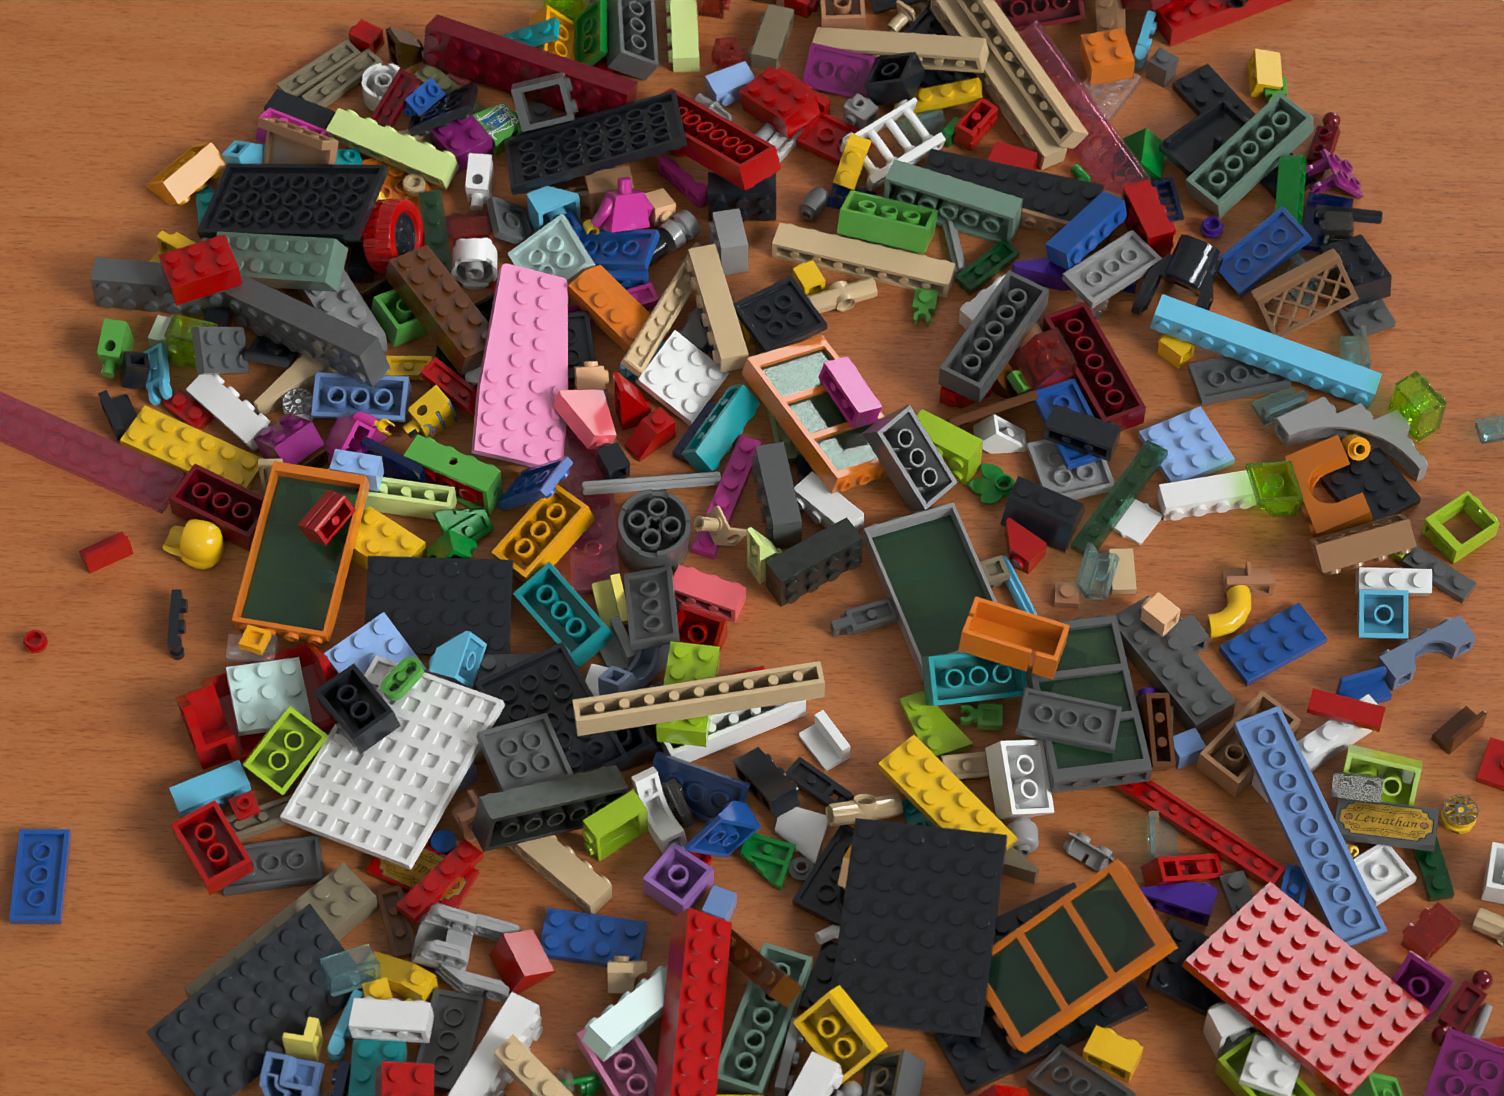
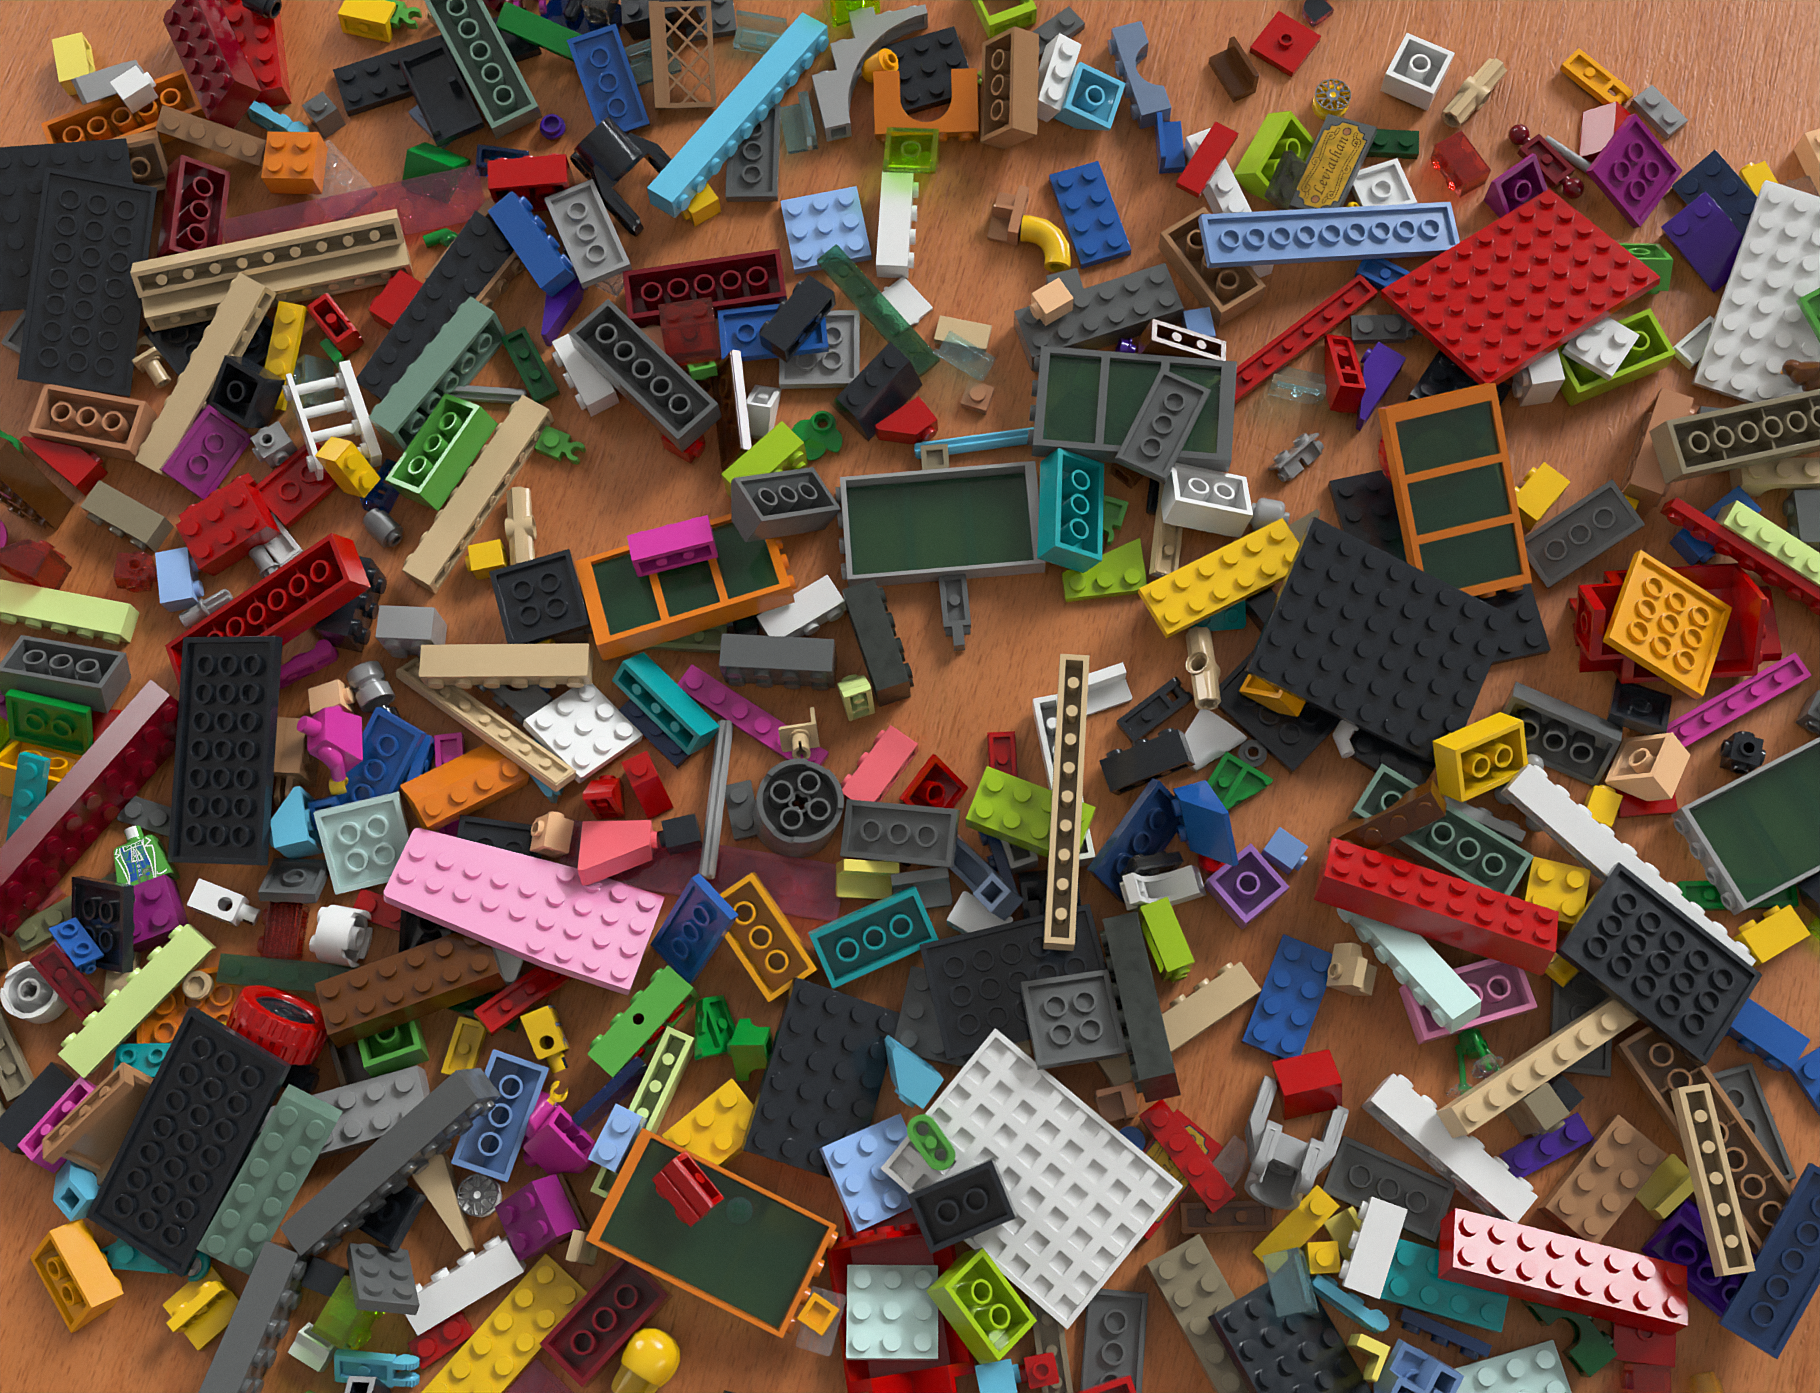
camera: 70 degrees left, 15 degrees up
(200, 269) = (261, 1281): red brick -> none
(522, 109) = (117, 796): dark grey window -> none
(1013, 637) = (1060, 449): orange piece -> none

